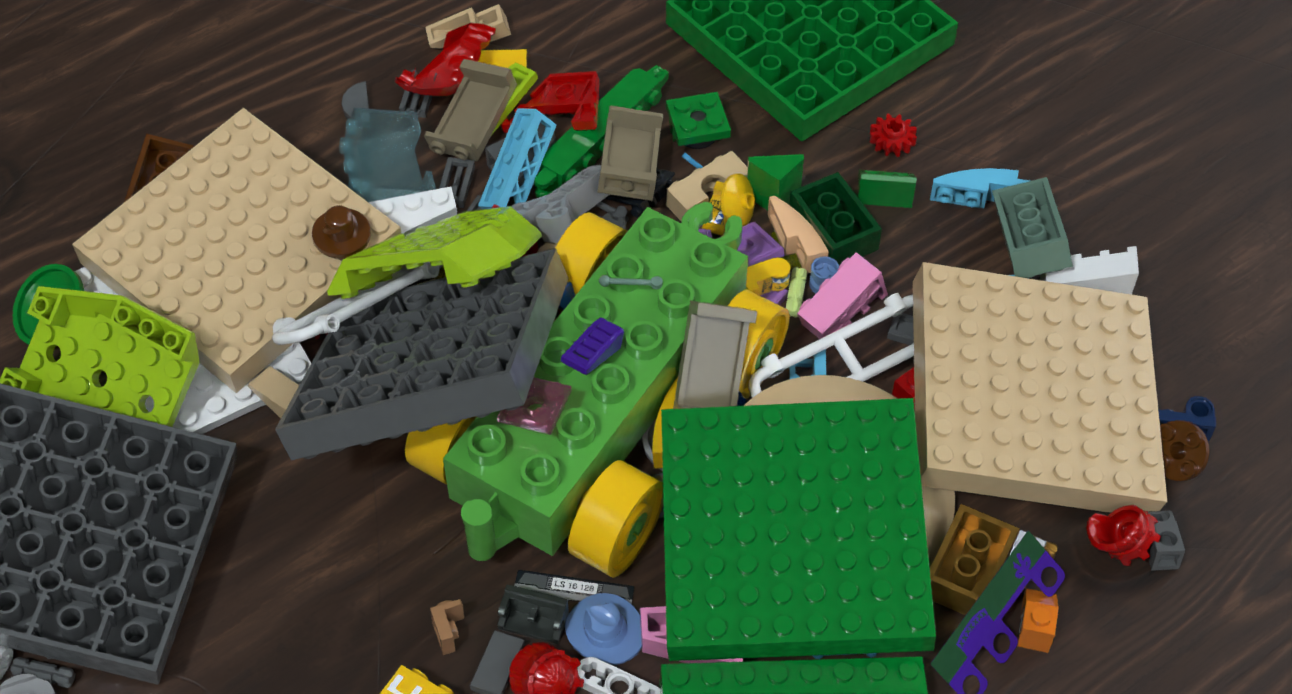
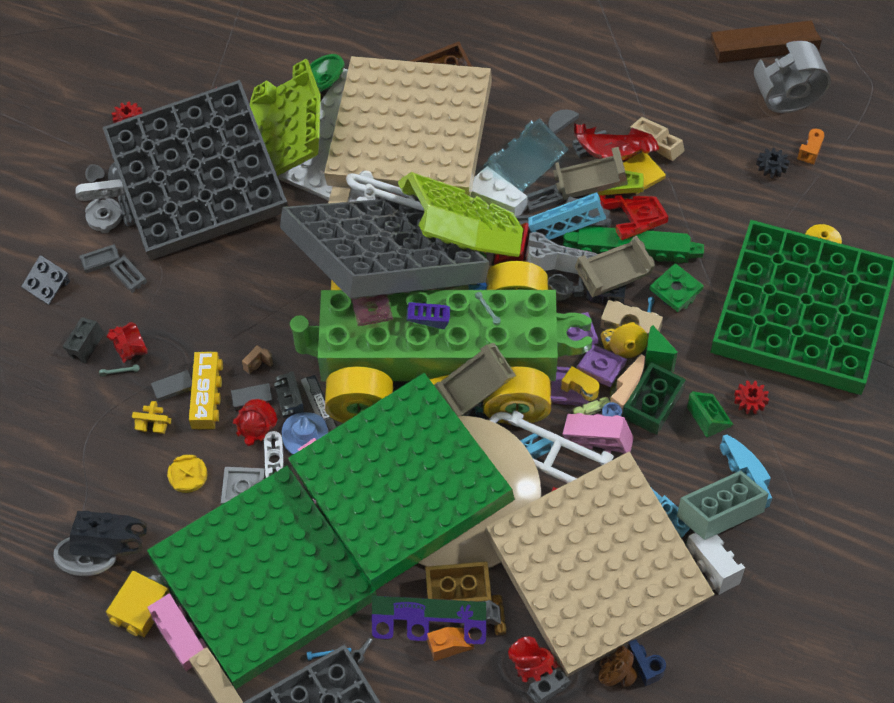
camera: 60 degrees right, 5 degrees up
(341, 232) = (439, 163): reddish brown plate -> none

